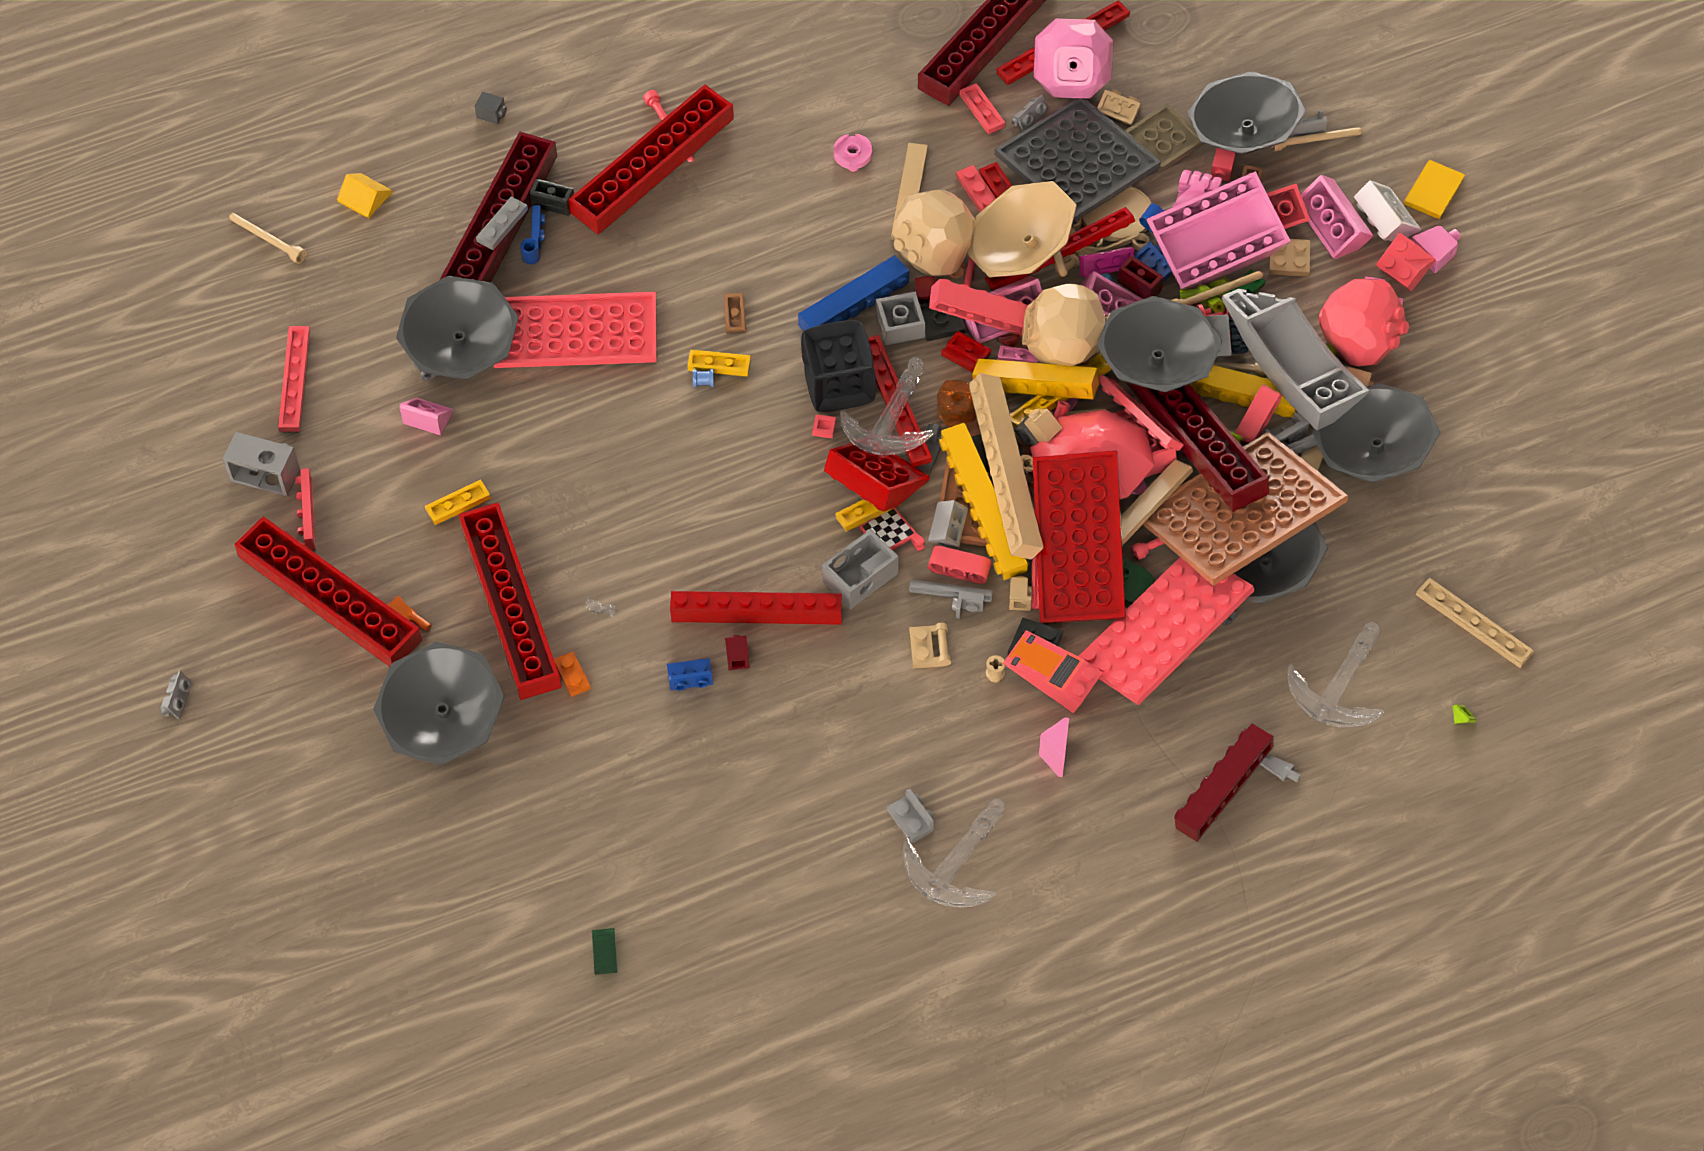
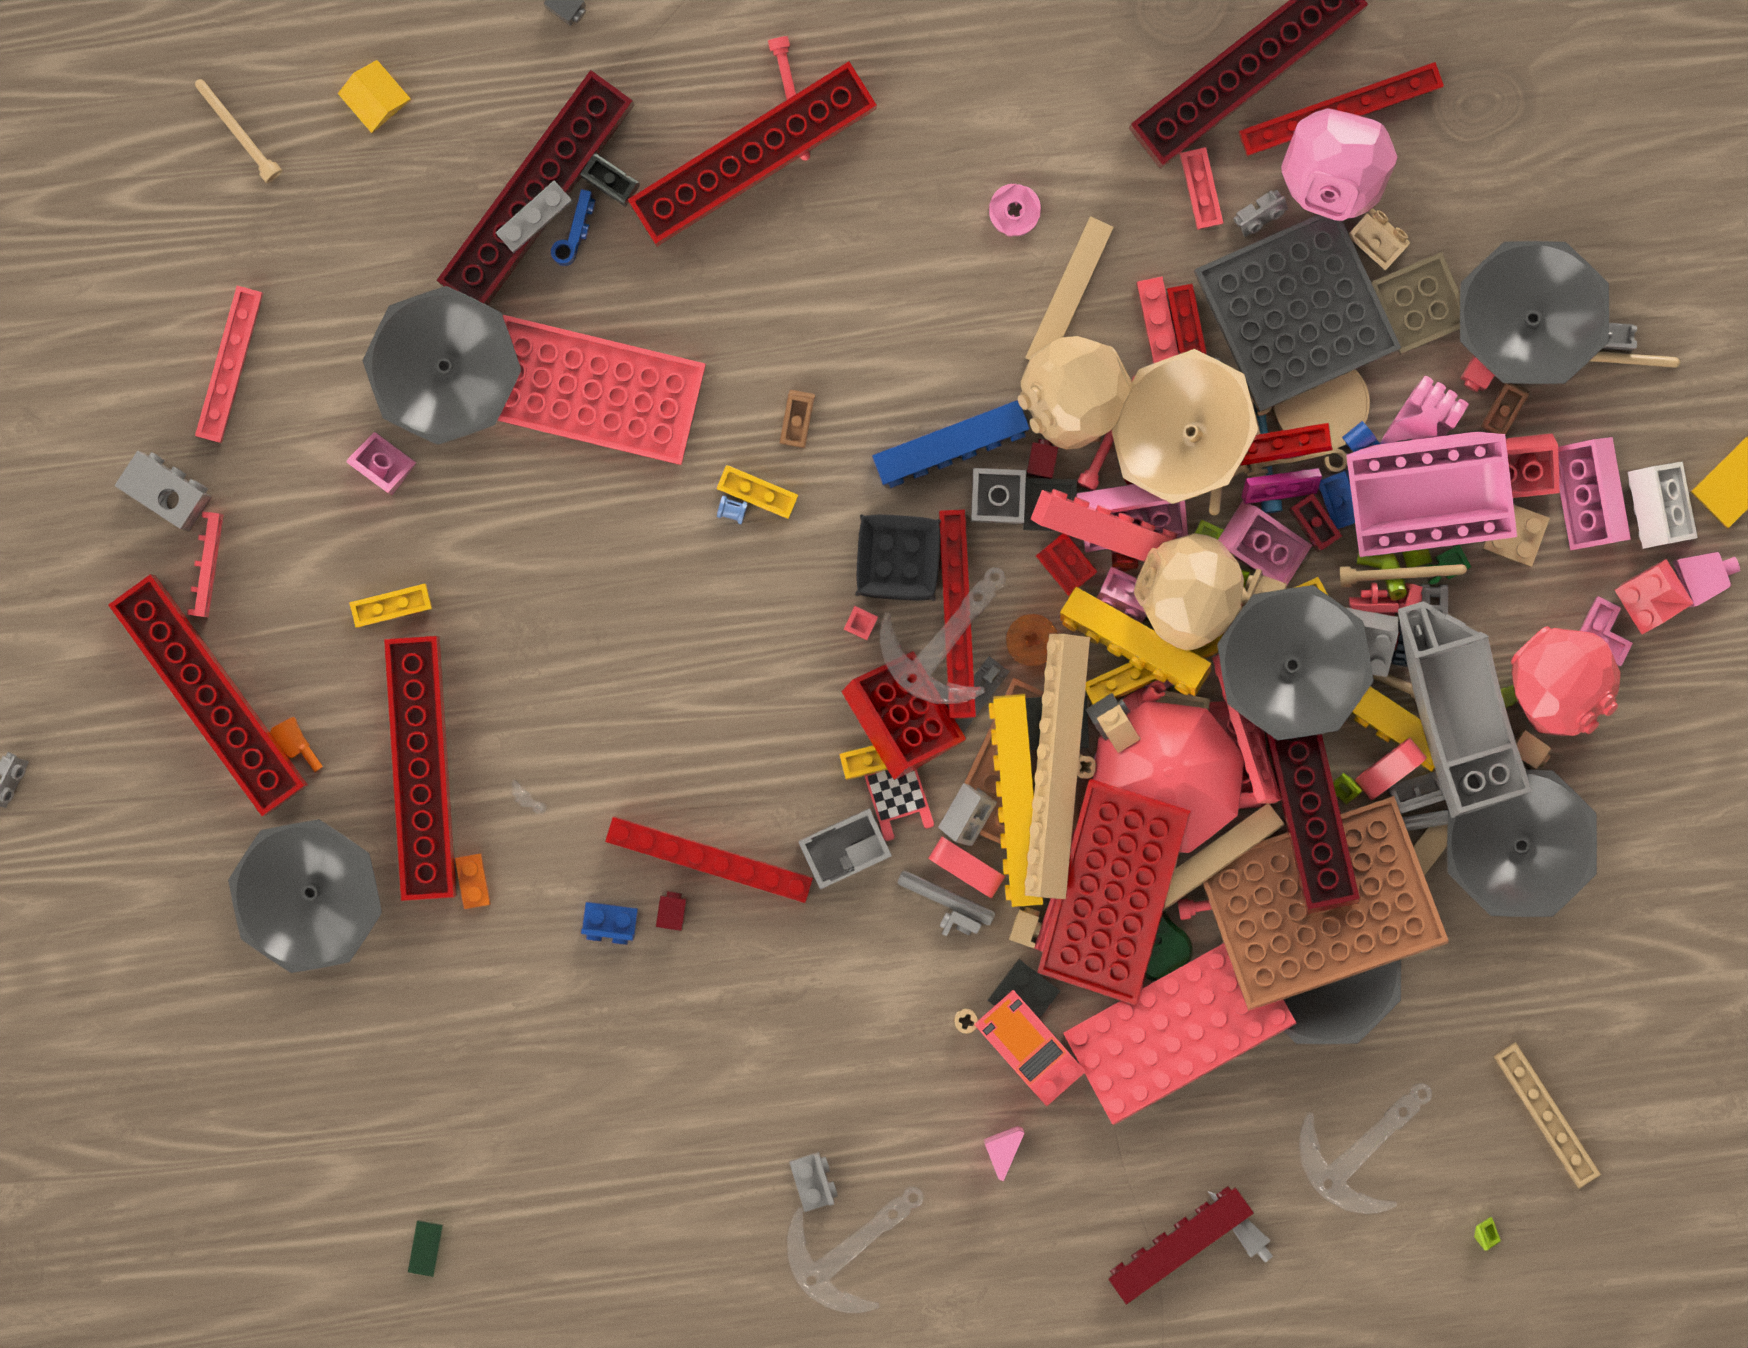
camera: 15 degrees right, 30 degrees up
(922, 646) = (891, 960): tan plate -> none

